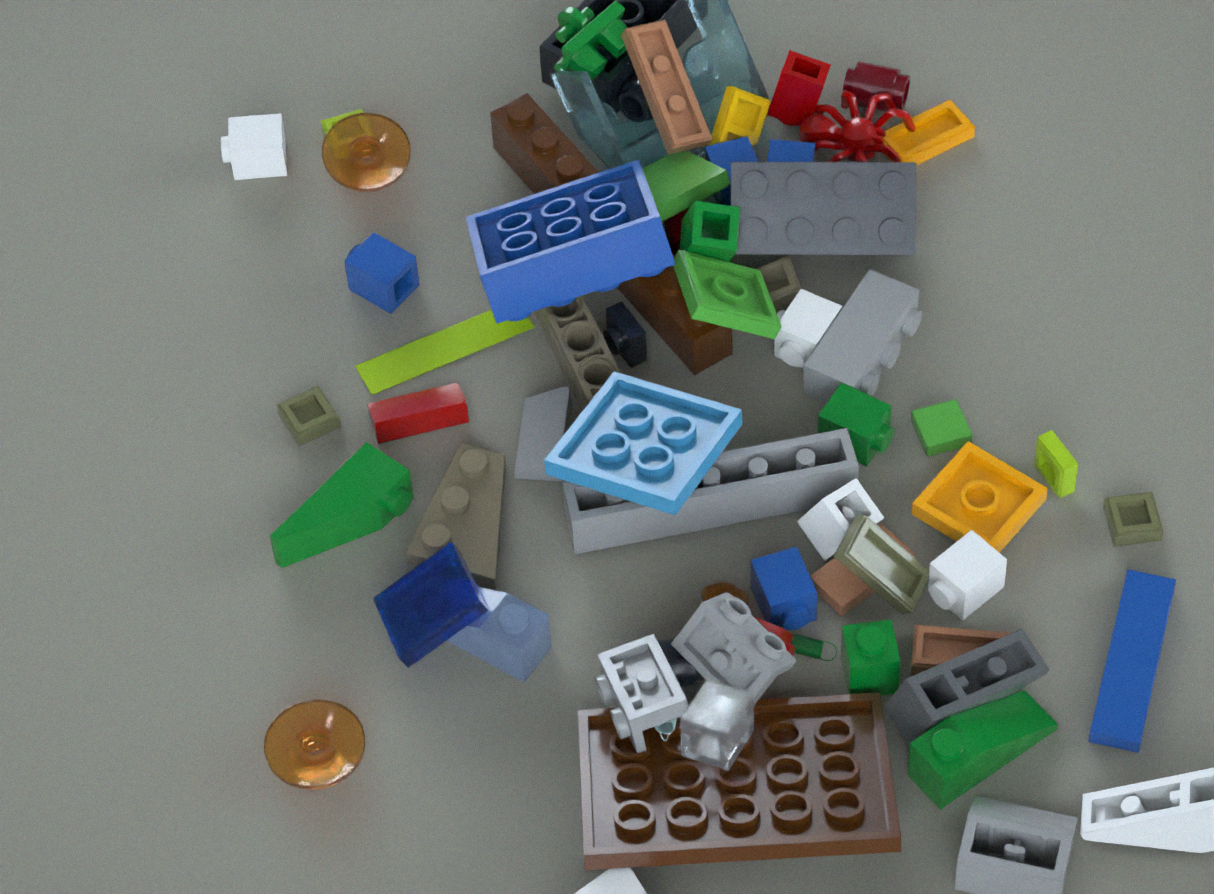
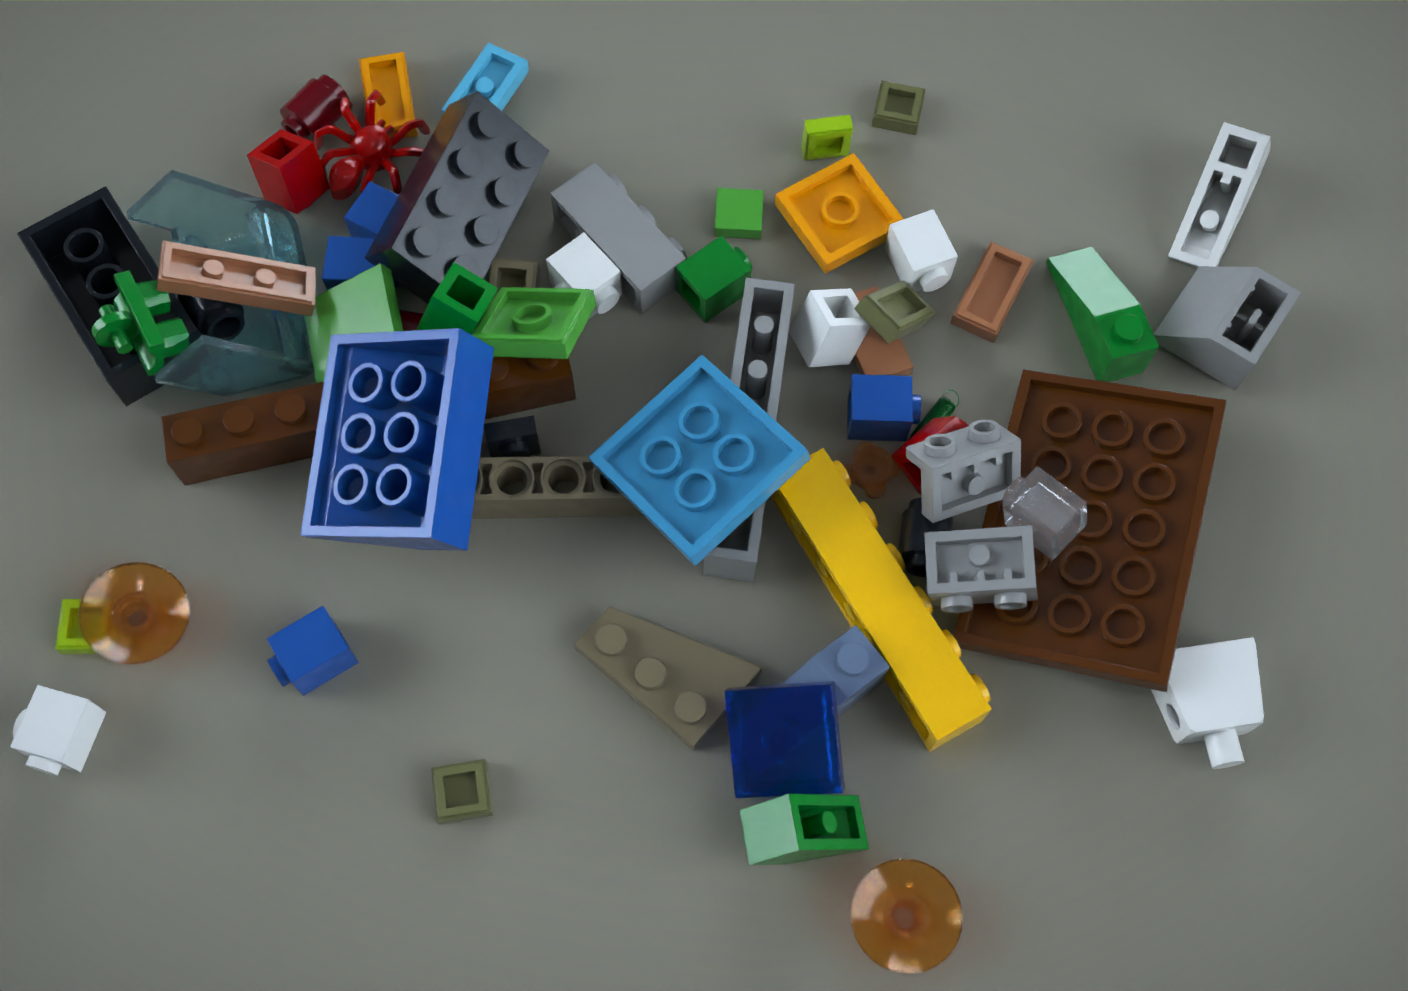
camera: 75 degrees left, 15 degrees up
(347, 506) = (607, 770): green slope -> none
(363, 651) = (803, 828): none -> green slope
(418, 412) = (508, 675): red slope -> none
(437, 350) = (430, 635): lime sticker -> none
(542, 426) = (597, 560): light grey slope -> none
(560, 670) = (880, 600): none -> yellow brick
(739, 116) = (295, 240): yellow tile -> none
(870, 657) = (988, 363): green brick -> none
(965, 683) = (1050, 301): dark grey slope -> none
(966, 197) = (494, 75): none -> medium azure plate
(1132, 661) = (1046, 165): blue tile -> none

